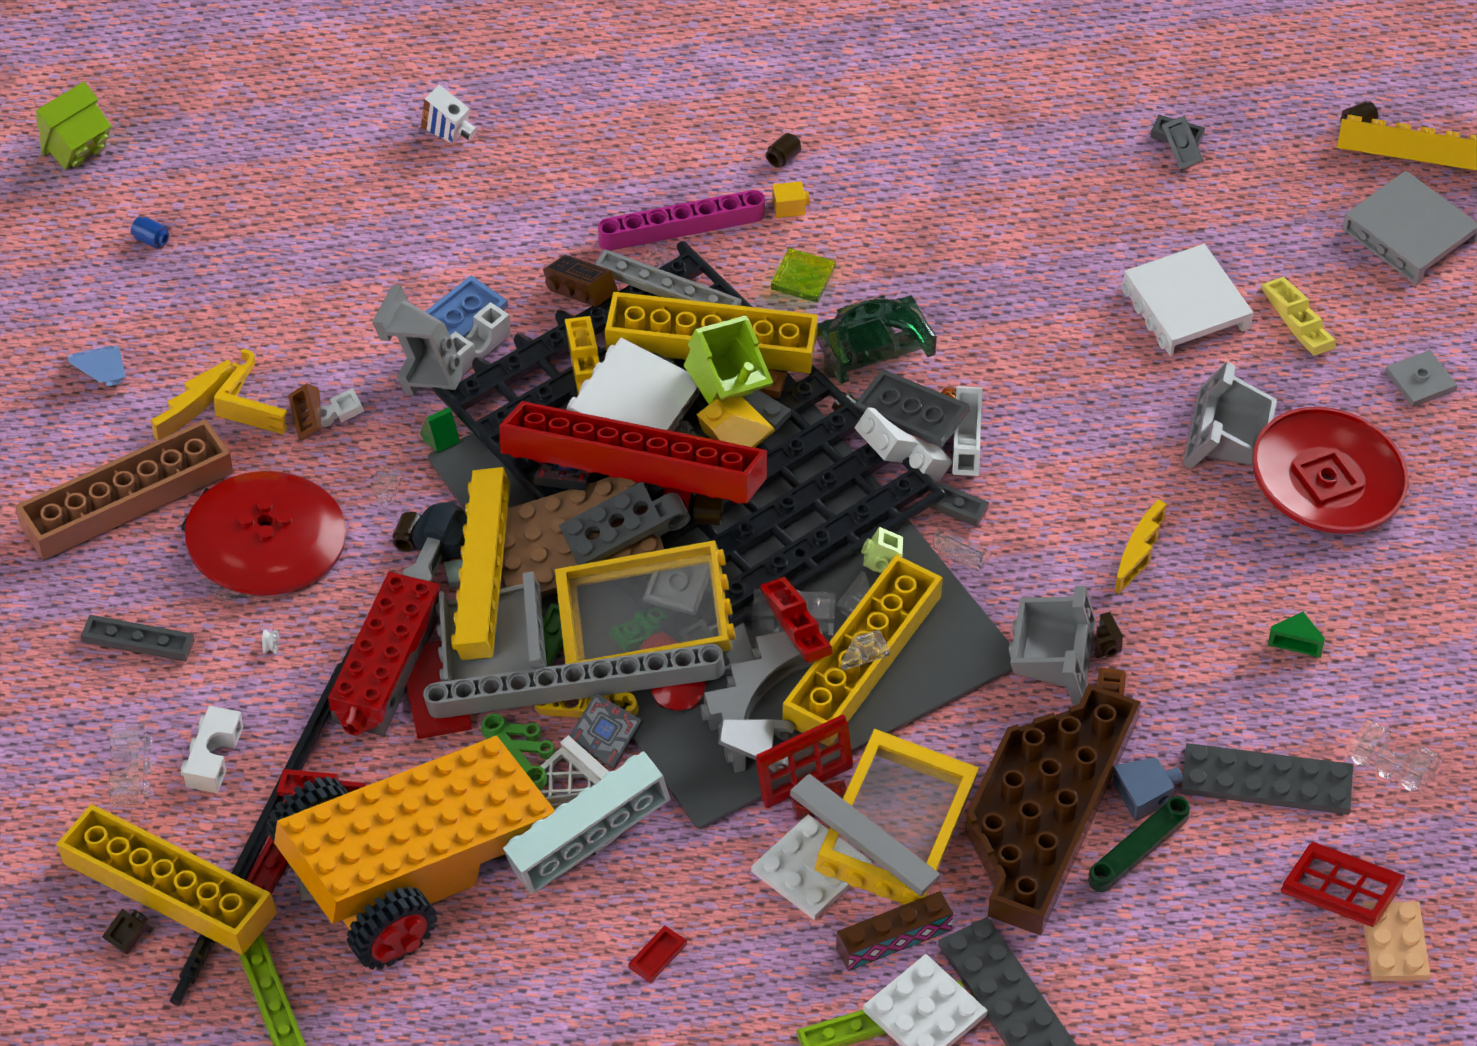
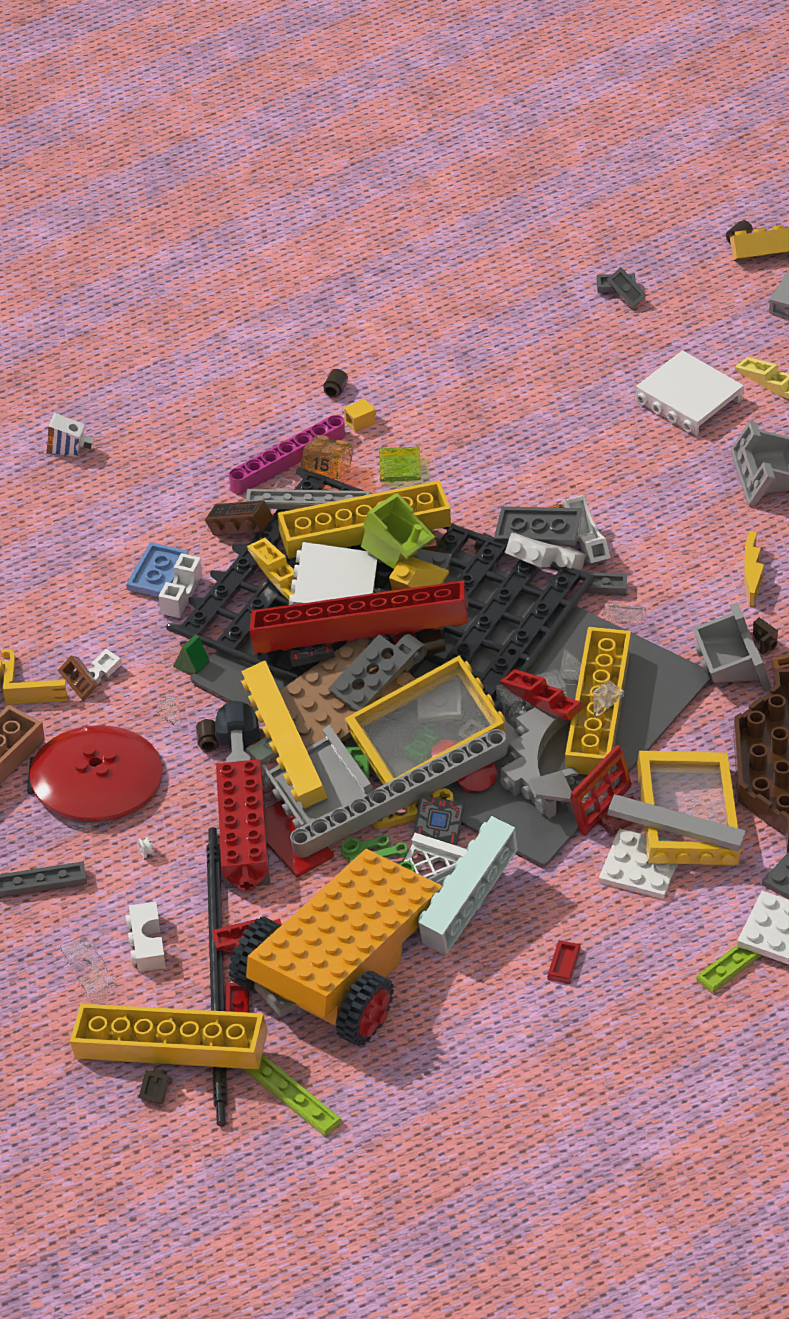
camera: 20 degrees left, 5 degrees down
(425, 341) = (153, 597): light grey windscreen -> none
(720, 240) = (327, 457): none -> clear yellow brick
(865, 335) = (472, 489): clear green piece -> none
(881, 549) = (573, 629): yellowish green brick -> none
(894, 930) = (728, 884): reddish brown brick -> none

